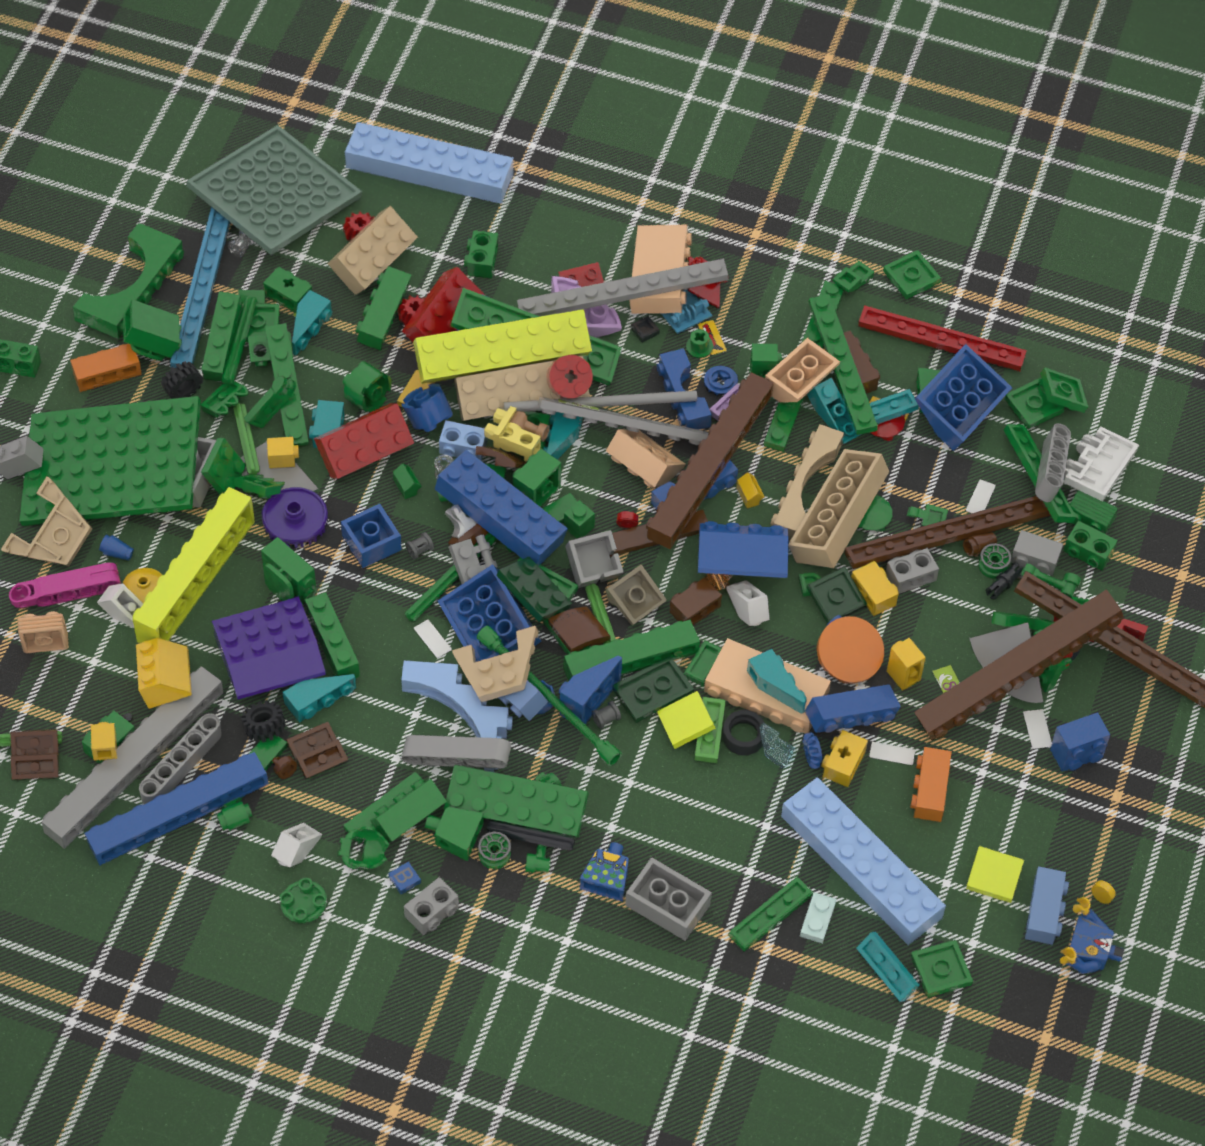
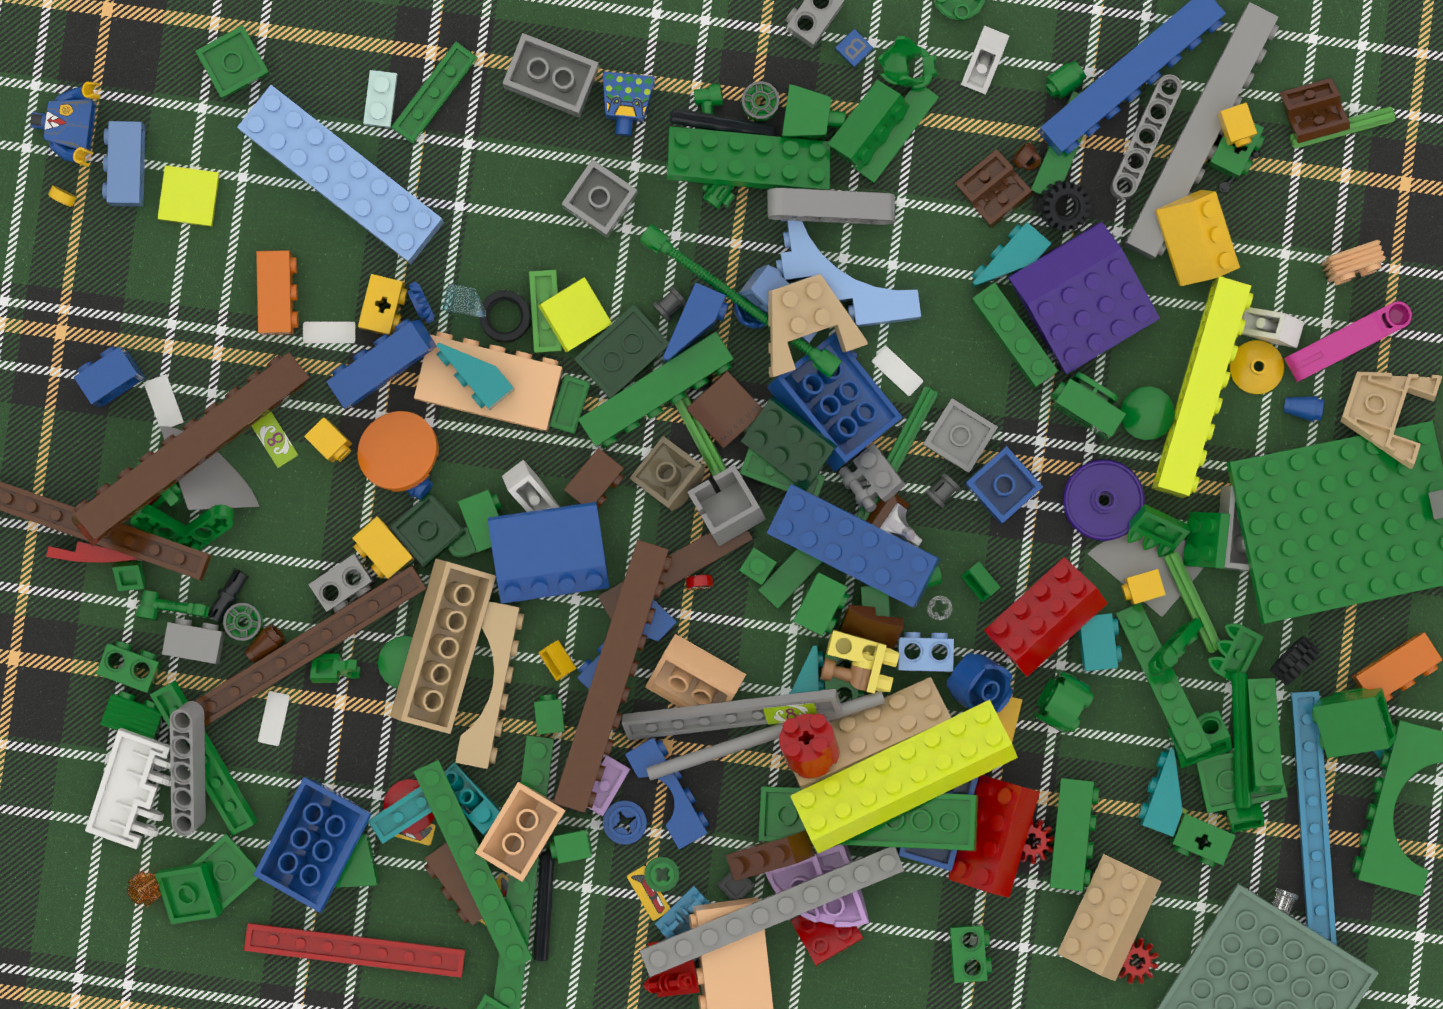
camera: 170 degrees right, 30 degrees up
(241, 567) = (1147, 413): none -> green dish
(395, 580) = (960, 435): none -> light grey plate
(628, 331) = (770, 855): none -> reddish brown arch
(647, 797) = (599, 198): none -> light grey brick
(764, 454) = (549, 714): none -> green brick
(790, 593) = (476, 512): none -> green brick
(796, 330) = (544, 906): none -> black axle
(888, 966) = (292, 50): teal plate -> none
(1097, 401) = (143, 888): none -> clear orange gear

